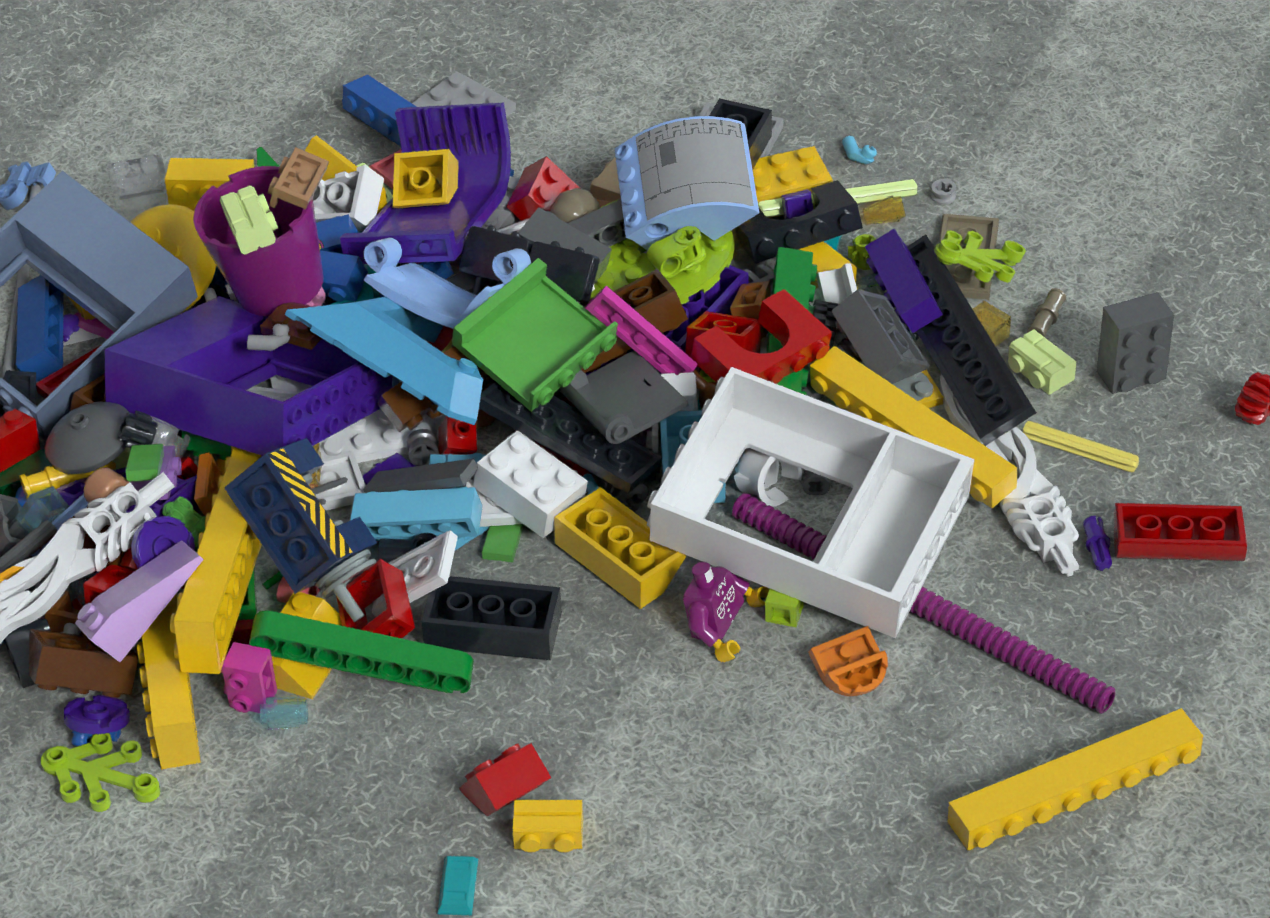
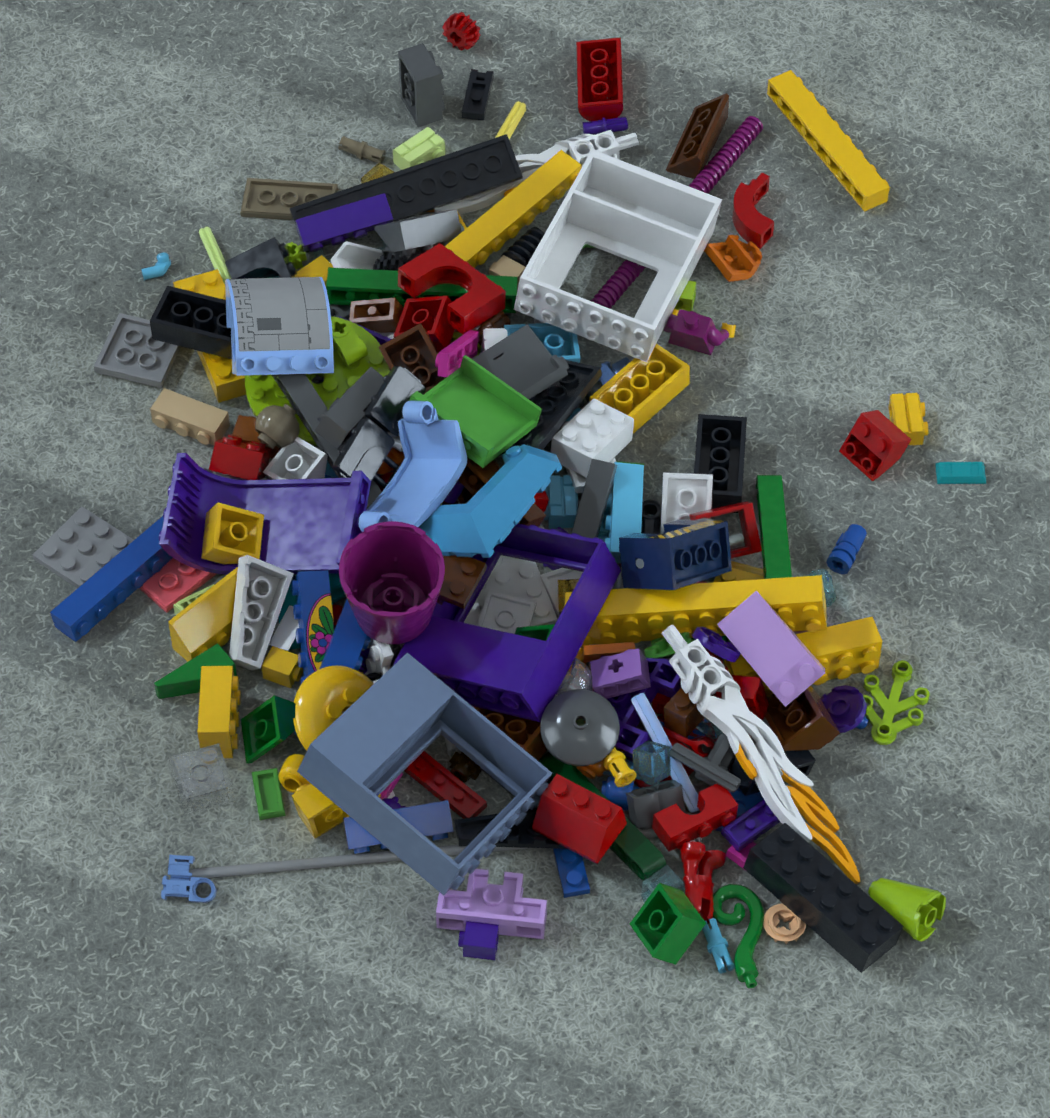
camera: 95 degrees left, 10 degrees up
(102, 483) = (659, 689): nougat head -> none
(137, 429) = (592, 675): black gear -> none
(144, 462) = (633, 660): bright green tile -> none
(249, 219) = (424, 557): yellowish green brick -> none
(269, 342) = (487, 588): light grey arm -> none
(298, 179) = (376, 527): medium nougat bracket -> none
(346, 745) = (846, 549): none -> blue axle
(885, 211) = (236, 242): clear yellow cone -> none
(932, 676) = (747, 220): none -> red arch
(943, 191) = (211, 206): light grey bush -> none
(950, 253) = (315, 186): lime plant -> none
(1077, 643) = (699, 137): none -> reddish brown slope
(1153, 421) = (477, 94): none -> black plate

